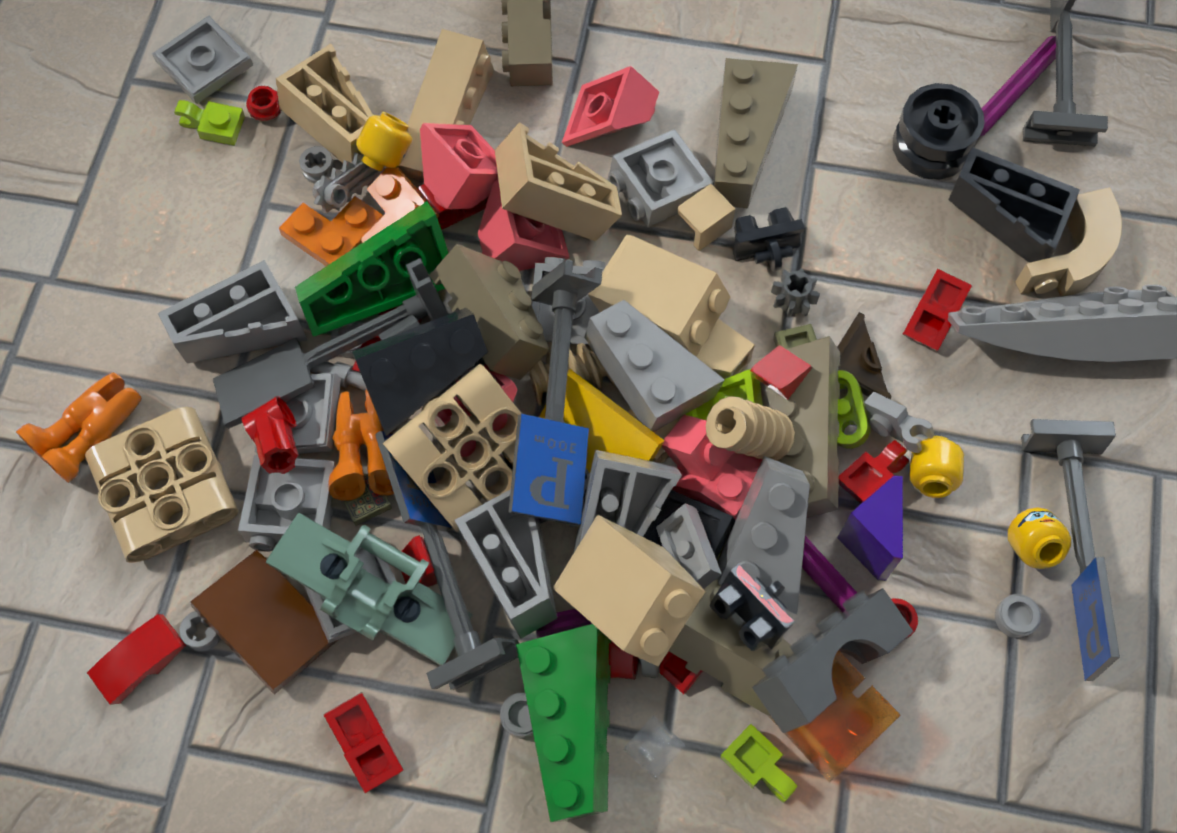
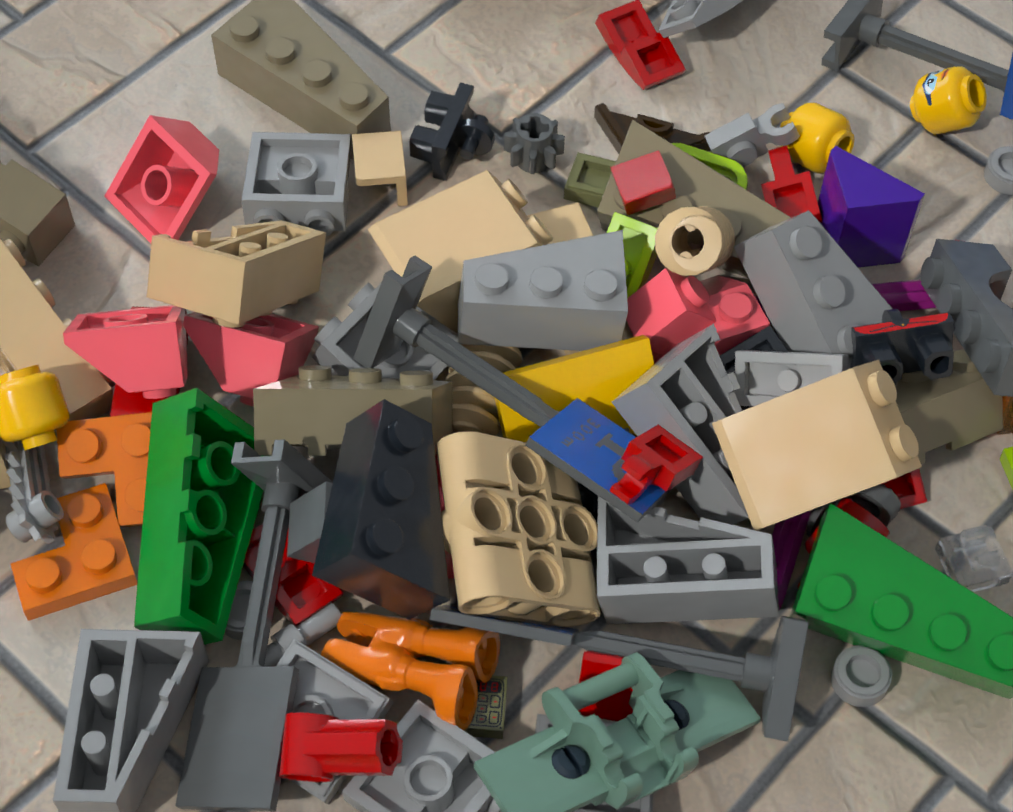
camera: 60 degrees left, 10 degrees down
(559, 498) = (657, 460): none -> red plate

